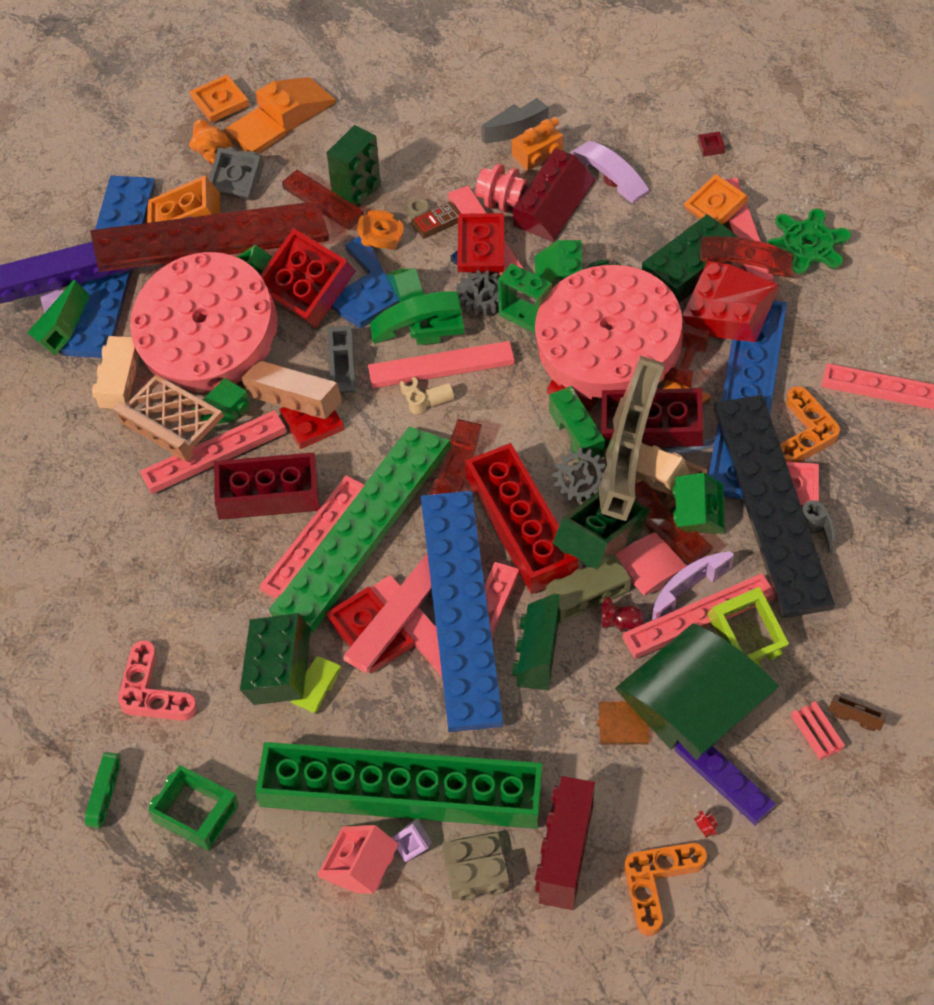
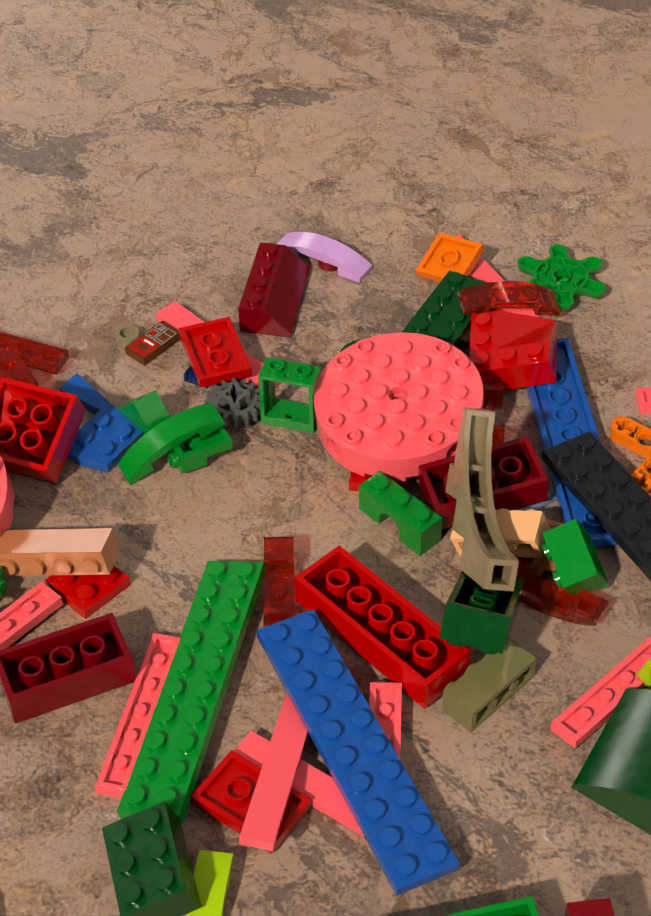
camera: 20 degrees left, 10 degrees down
(342, 358) = (100, 503): dark grey slope -> none
(354, 165) = (45, 302): dark green brick -> none
(387, 237) = (94, 365): orange plate -> none
(419, 401) = (207, 531): tan bar -> none
(441, 364) = (216, 488): coral tile -> none
(500, 187) = (215, 293): coral piece -> none
(514, 121) = (202, 230): dark grey slope -> none
(537, 144) = (235, 245): orange brick -> none
(537, 643) = (462, 759): dark green slope -> none
(559, 261) = (310, 347): green slope -> none
(569, 470) = (441, 564): dark grey gear -> none
(621, 617) = (541, 705): dark red animal -> none
(621, 725) = (592, 828): clear orange piece -> none
(650, 563) = (548, 637): coral slope -> none
(710, 566) = (613, 625): lavender slope -> none
(711, 144) = (417, 210): dark red tile -> none

